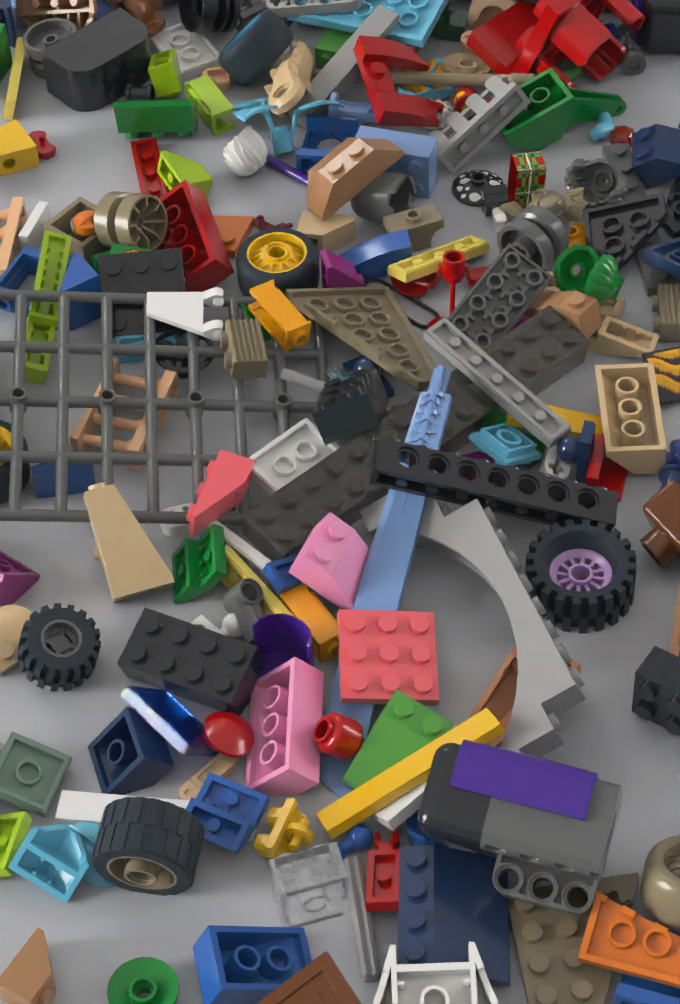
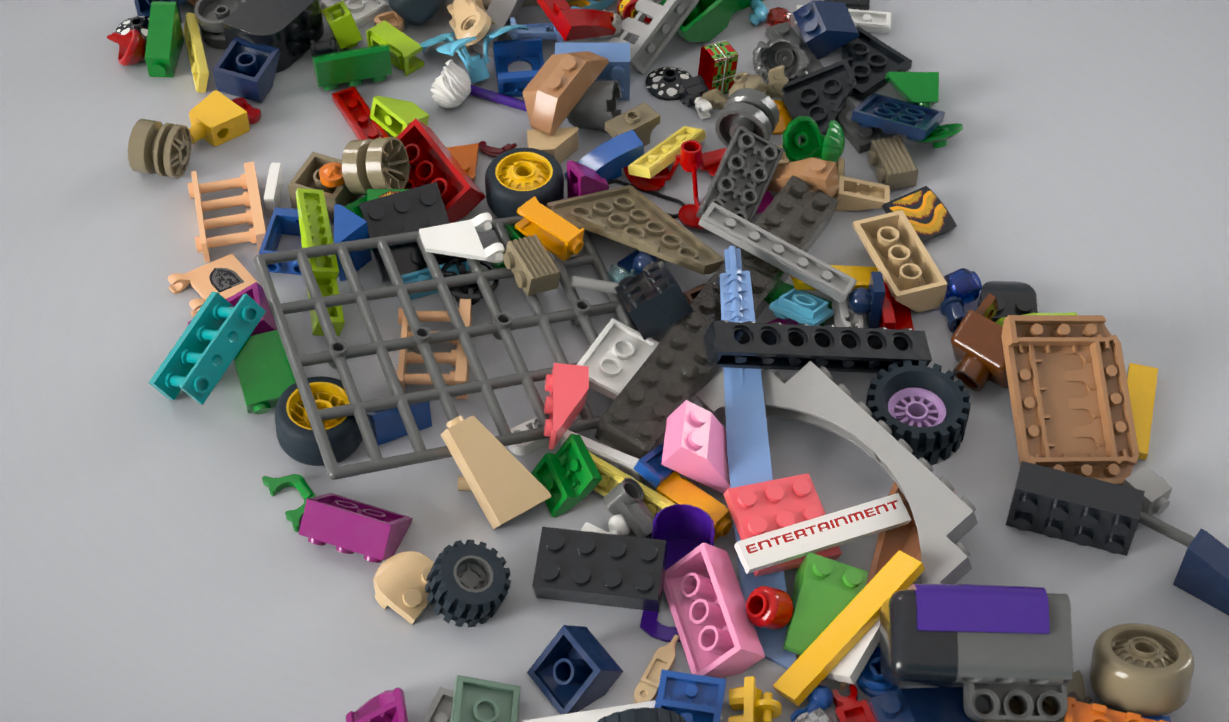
camera: 20 degrees left, 0 degrees up
(53, 103) = (246, 69): none -> dark blue slope
(169, 719) = (606, 629): clear blue tile -> none
(228, 734) = (661, 629): red hat -> none
(420, 674) = (822, 533): none -> white tile

